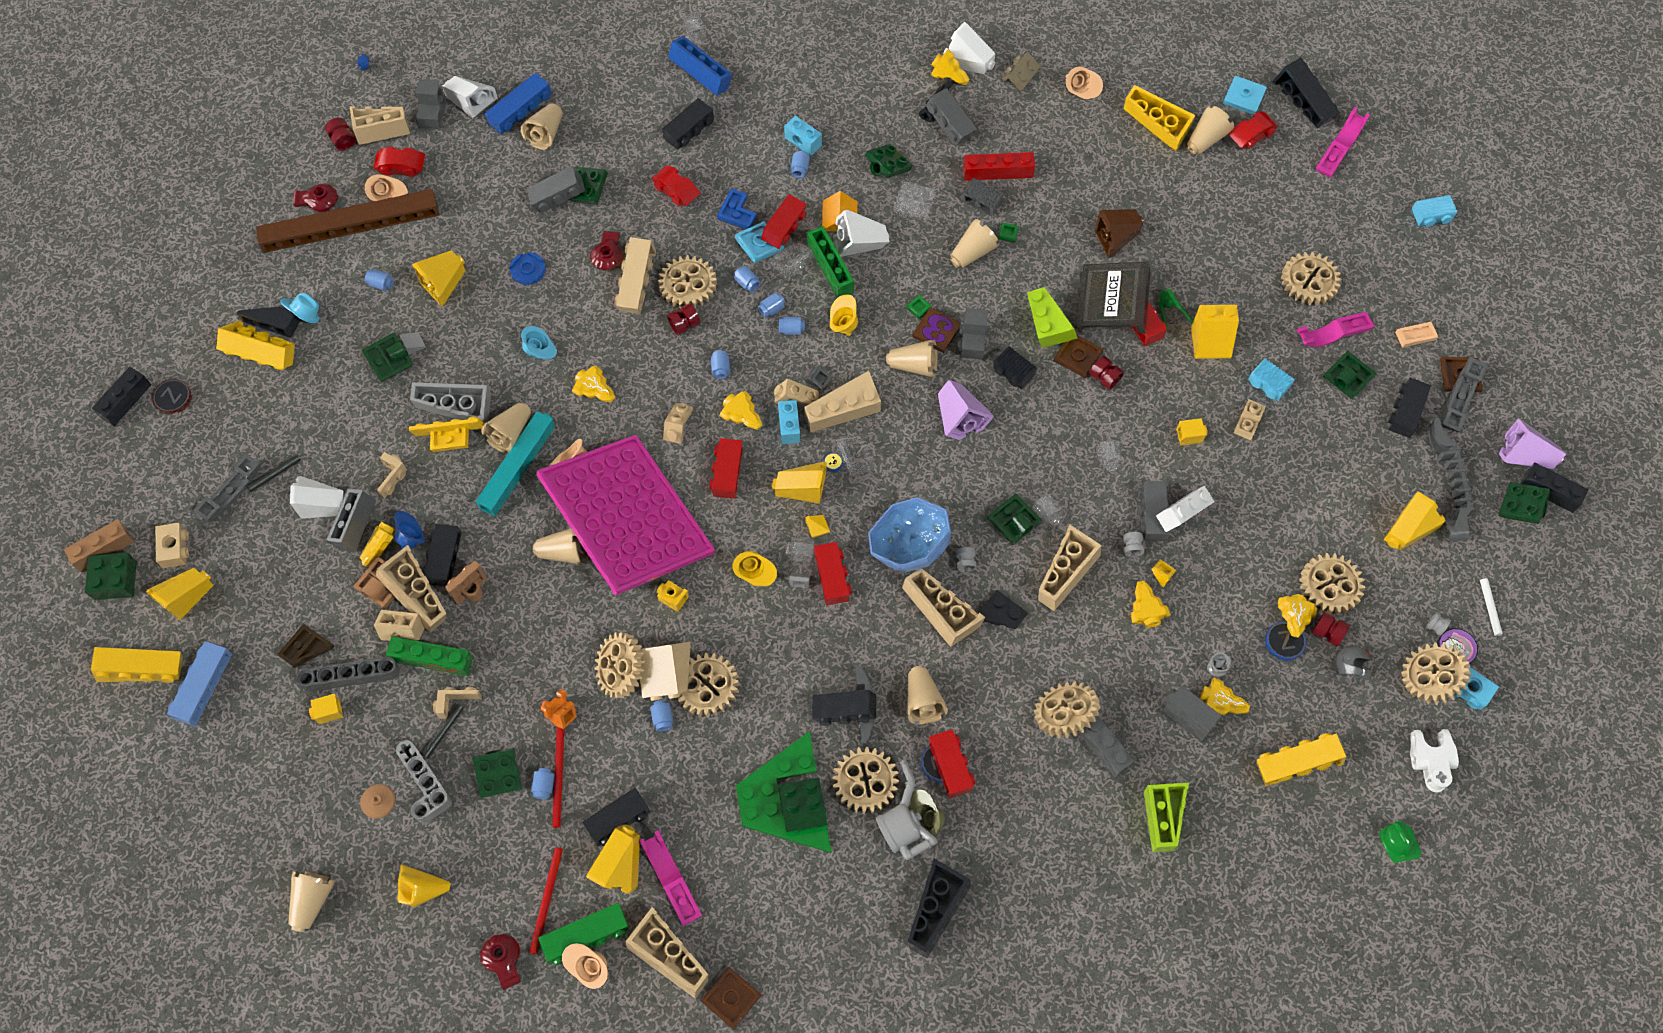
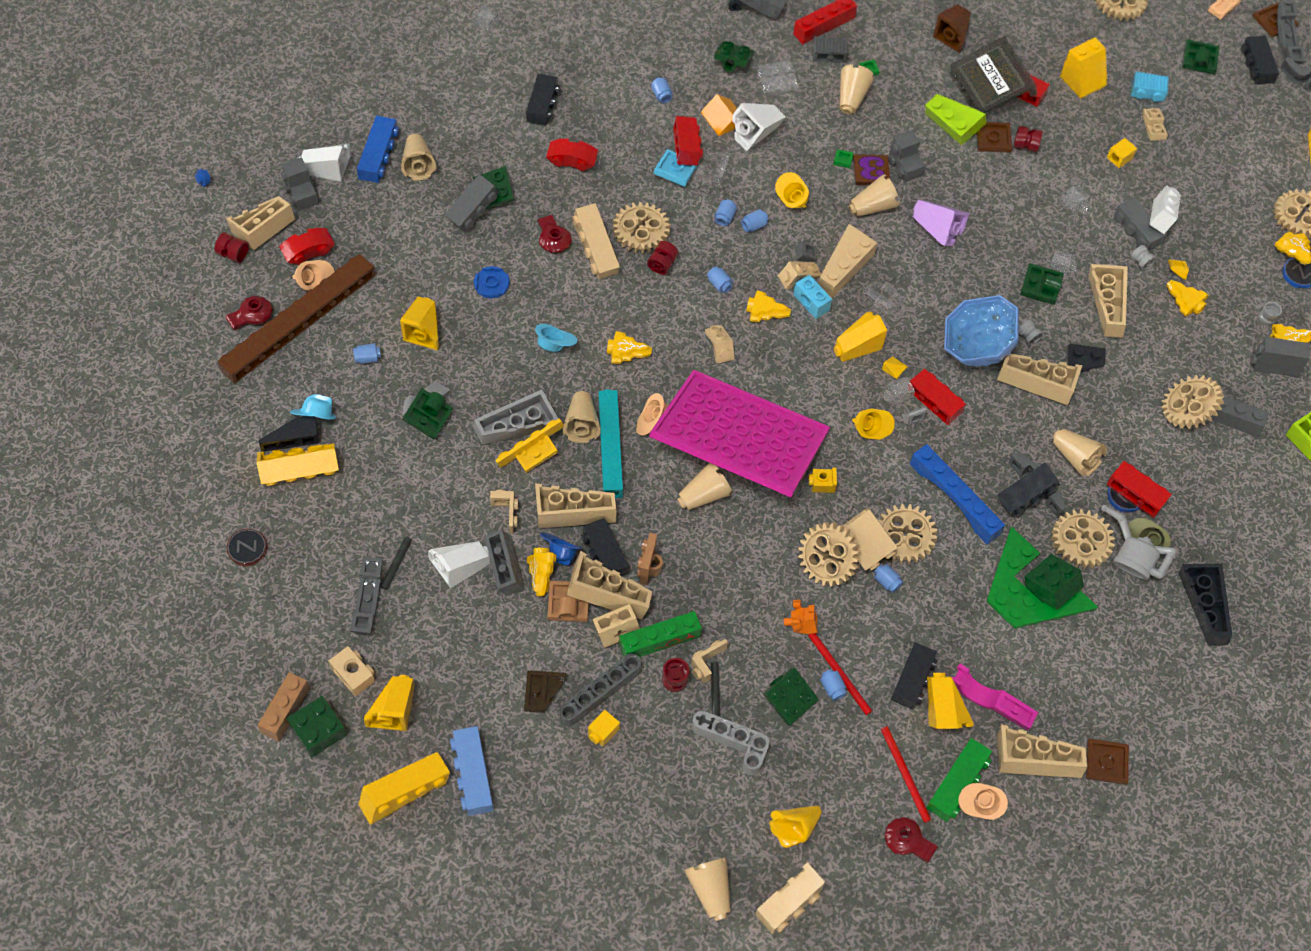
camera: 35 degrees left, 5 degrees down
(121, 396) = (201, 569): black brick -> none
(361, 950) = (791, 900): none -> tan wedge
(377, 801) = (703, 779): medium nougat piece -> none
(415, 697) = (675, 675): none -> dark red wheel
(440, 502) = (573, 507): none -> tan wedge
(700, 65) = (517, 47): blue brick -> none
(726, 468) = (790, 358): red brick -> none
(733, 211) = (637, 155): blue plate -> none
(747, 279) = (689, 201): medium blue brick -> none
(780, 674) = (979, 515): none -> blue arch
(803, 135) = (647, 65): medium azure brick -> none
(830, 262) = (750, 155): green brick -> none
(834, 462) = (869, 307): light yellow tile -> none
(1014, 367) = (955, 168): black brick -> none
(1168, 299) = (1031, 61): green plant -> none
(1337, 329) = (1167, 27): dark pink piece -> none

